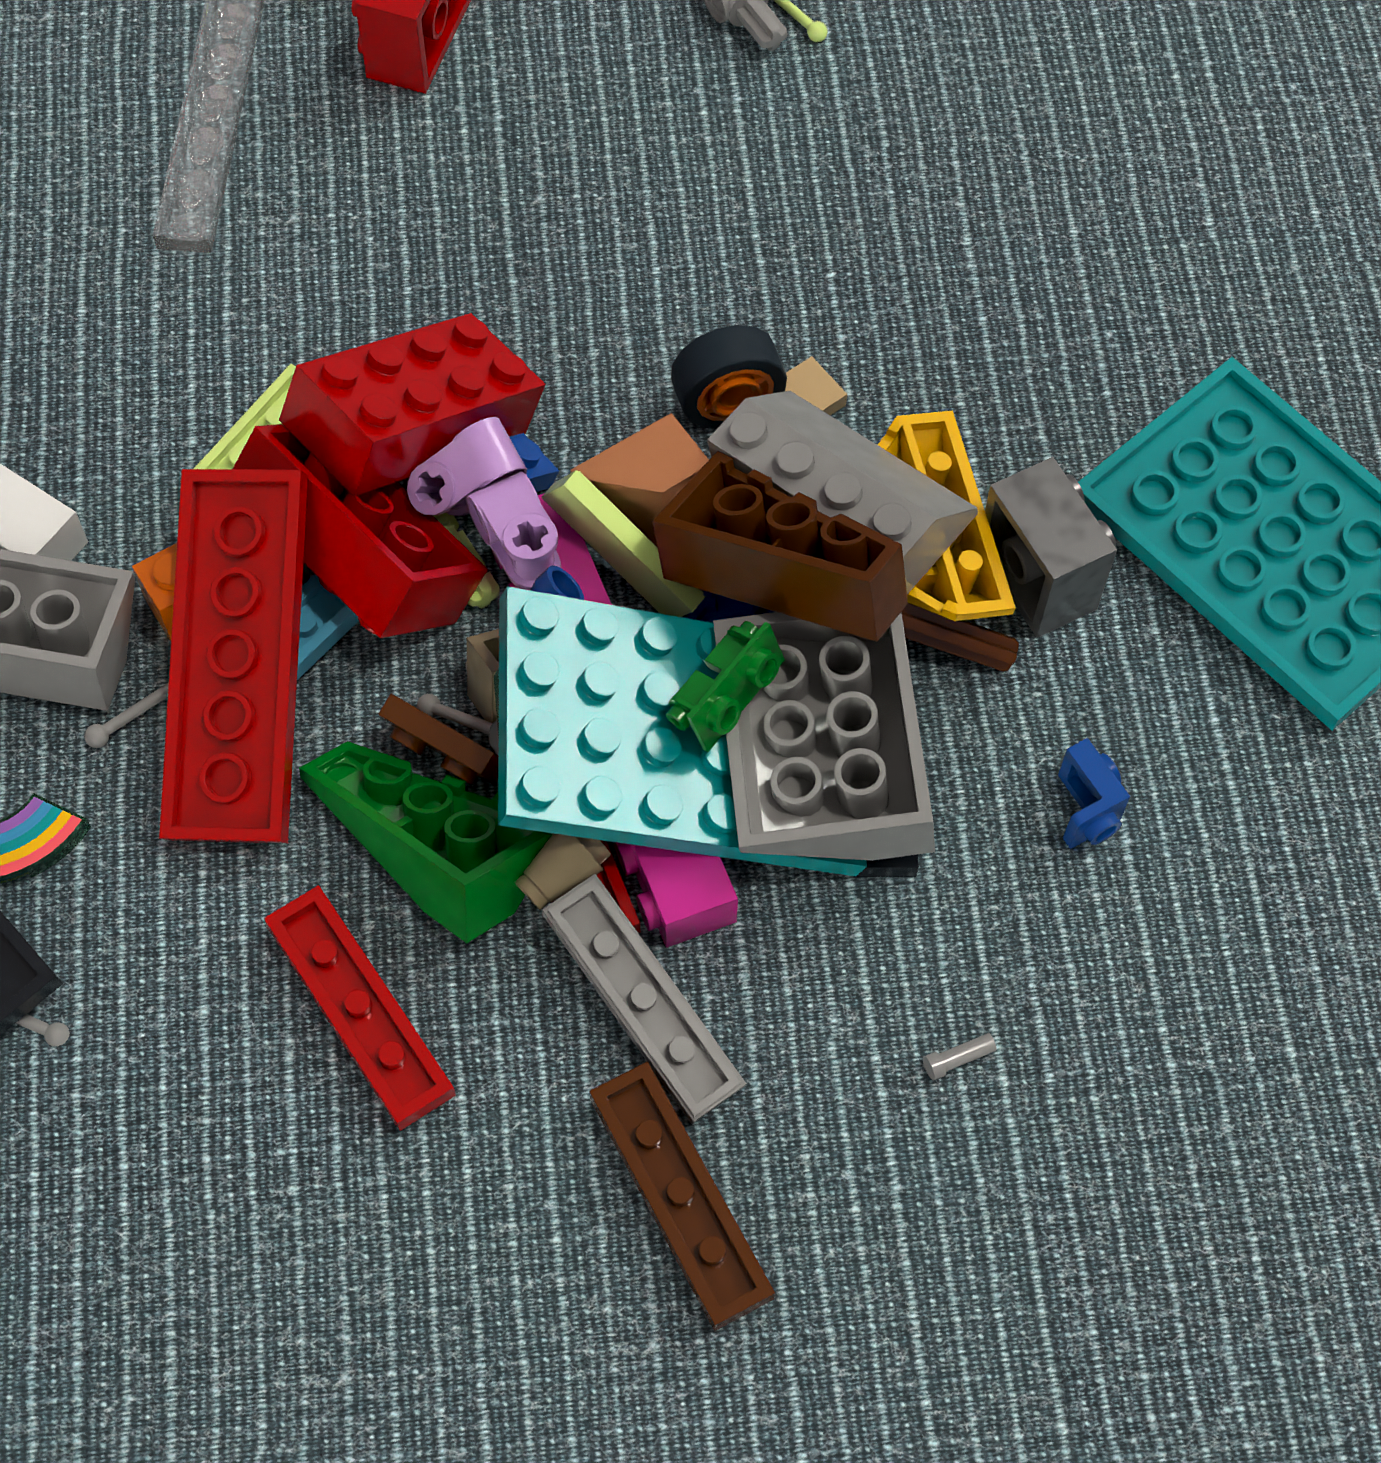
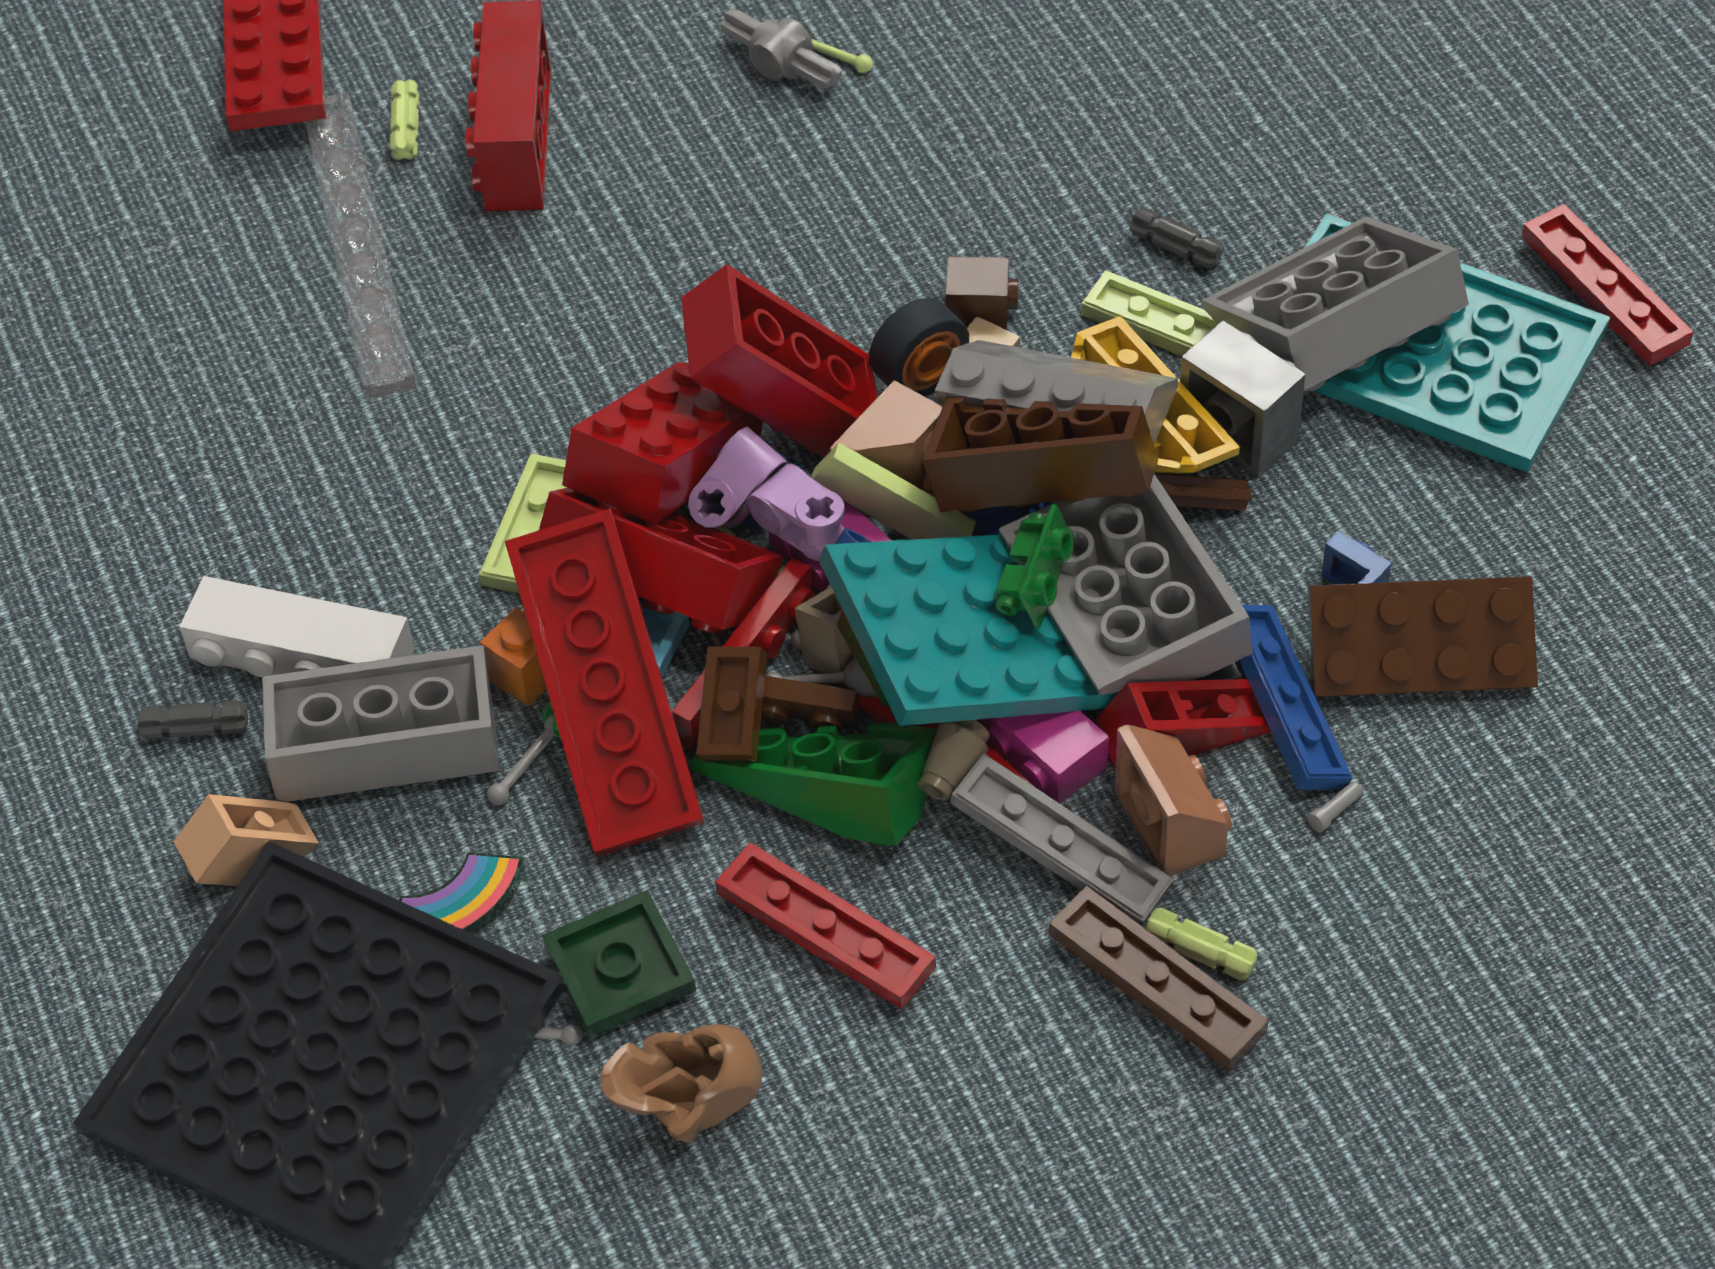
camera: 15 degrees left, 10 degrees down
(126, 1140) = (685, 1078): none -> medium nougat head
(129, 975) = (619, 963): none -> dark green plate
(356, 725) = (731, 704): none -> reddish brown plate
(421, 654) = (762, 627): none -> red plate
(555, 349) = (775, 360): none -> red brick
(746, 1169) = (1202, 944): none -> yellowish green axle
(778, 993) = (1168, 800): none -> nougat slope
(825, 328) = (980, 289): none -> brick
(835, 900) = (1196, 712): none -> red slope
(957, 914) = (1291, 706): none -> blue tile
(1003, 415) = (1148, 312): none -> yellowish green tile
(1062, 332) = (1176, 237): none -> dark grey axle
(1132, 893) = (1422, 636): none -> reddish brown plate
(1202, 467) = (1345, 298): none -> light grey slope

